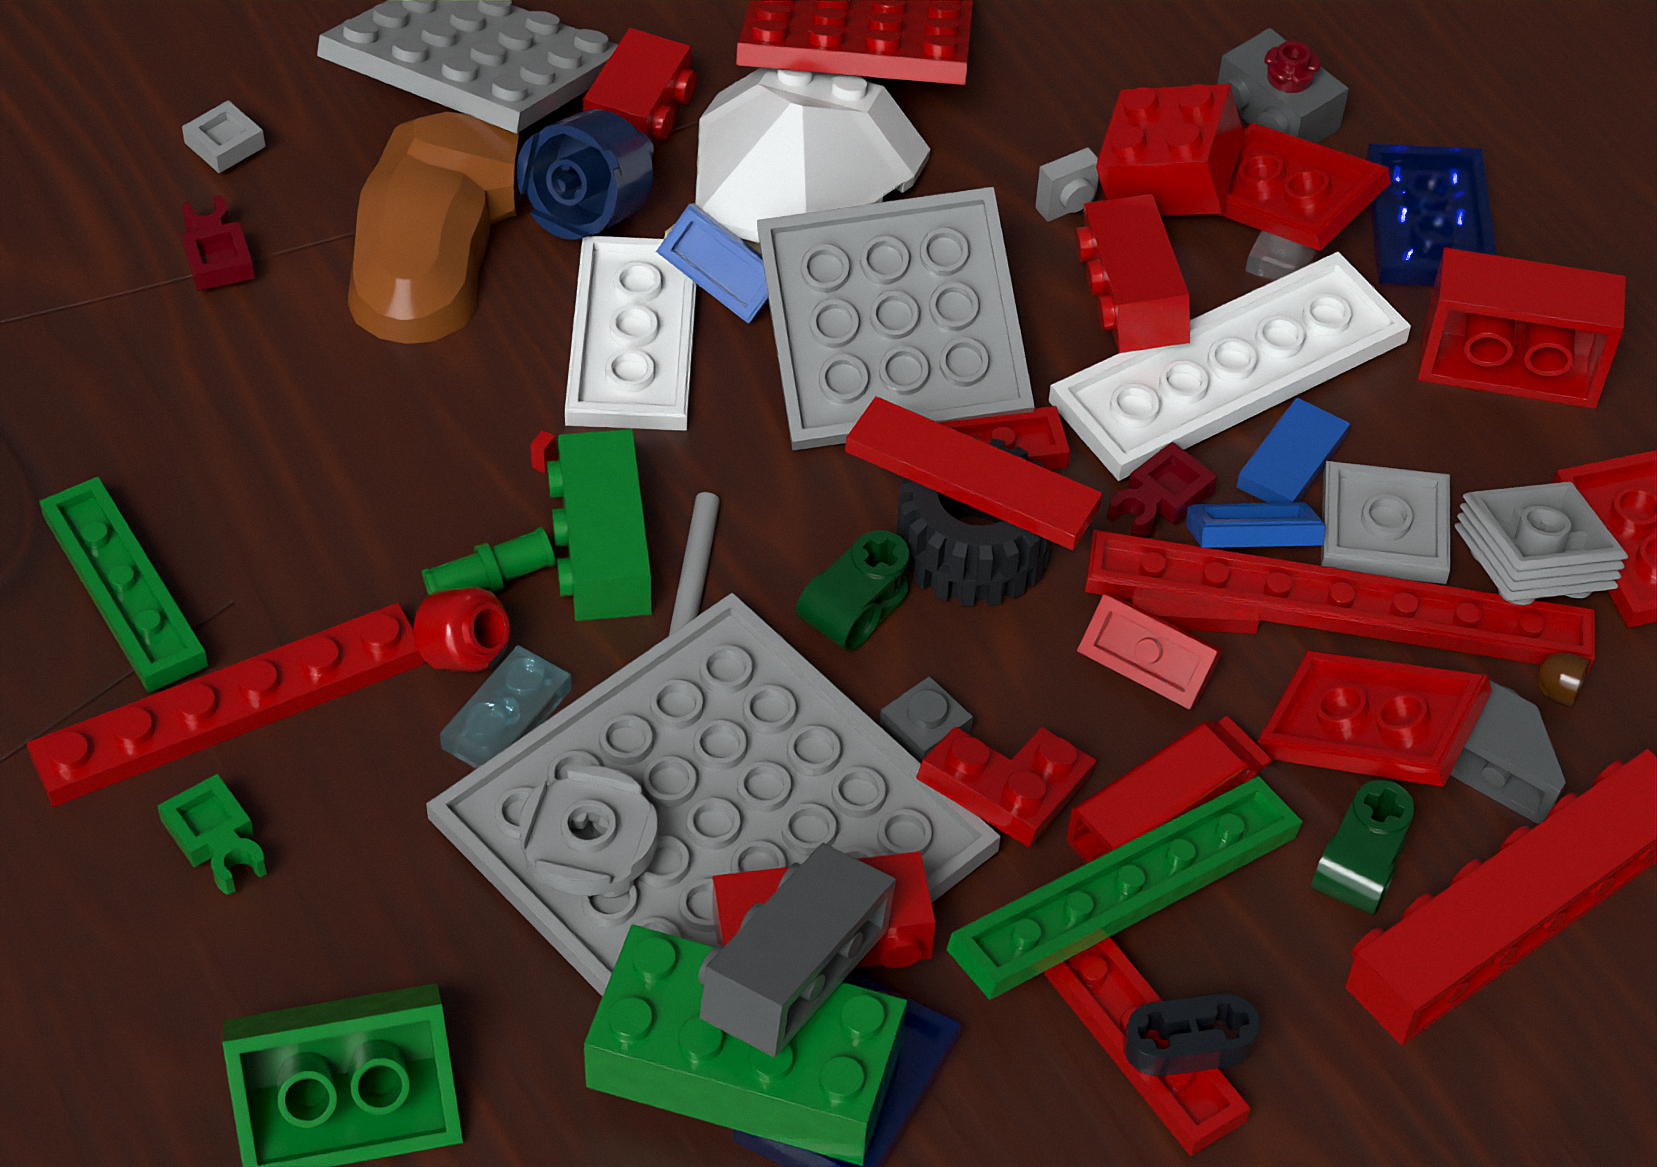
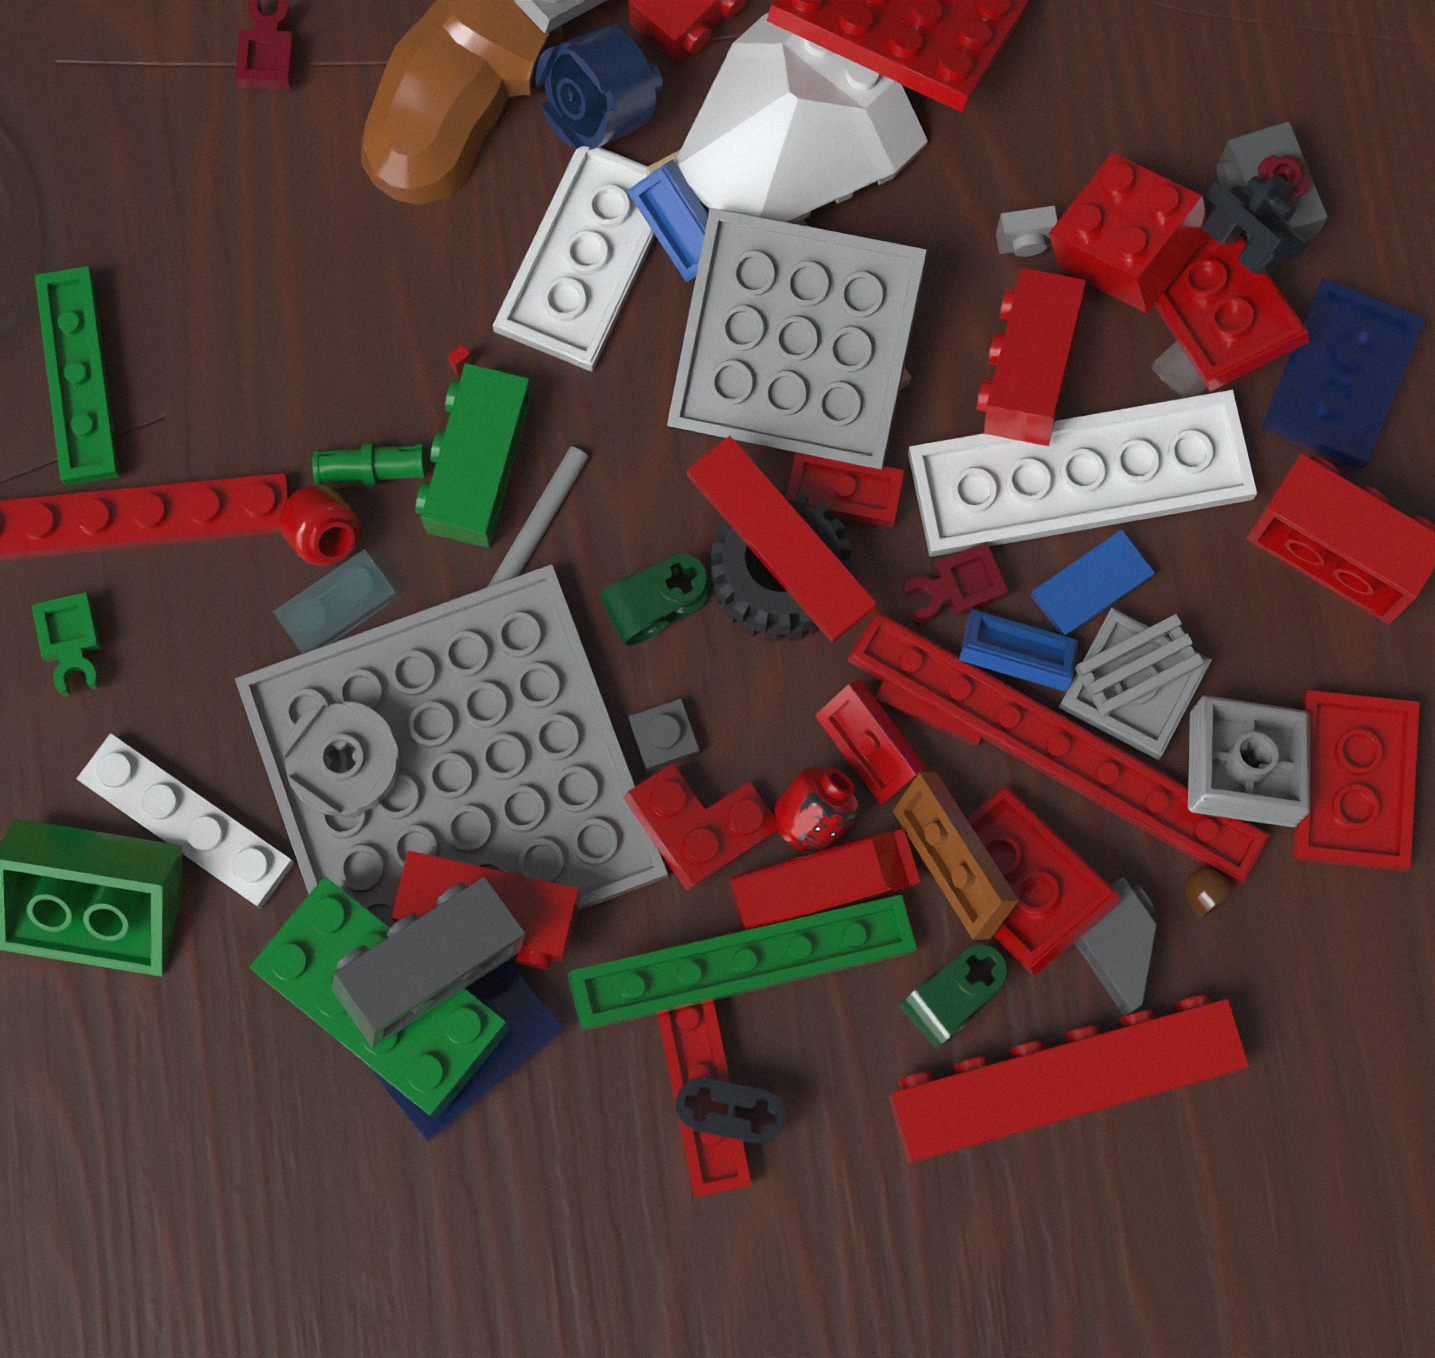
camera: 25 degrees right, 25 degrees up
(471, 979) = (185, 819): none -> white plate
(1128, 720) = (816, 809): none -> red head
(1300, 707) = (955, 855): none -> dark orange plate
(1309, 103) = (1256, 214): none -> black hips
(1408, 464) = (1180, 643): none -> light grey tile

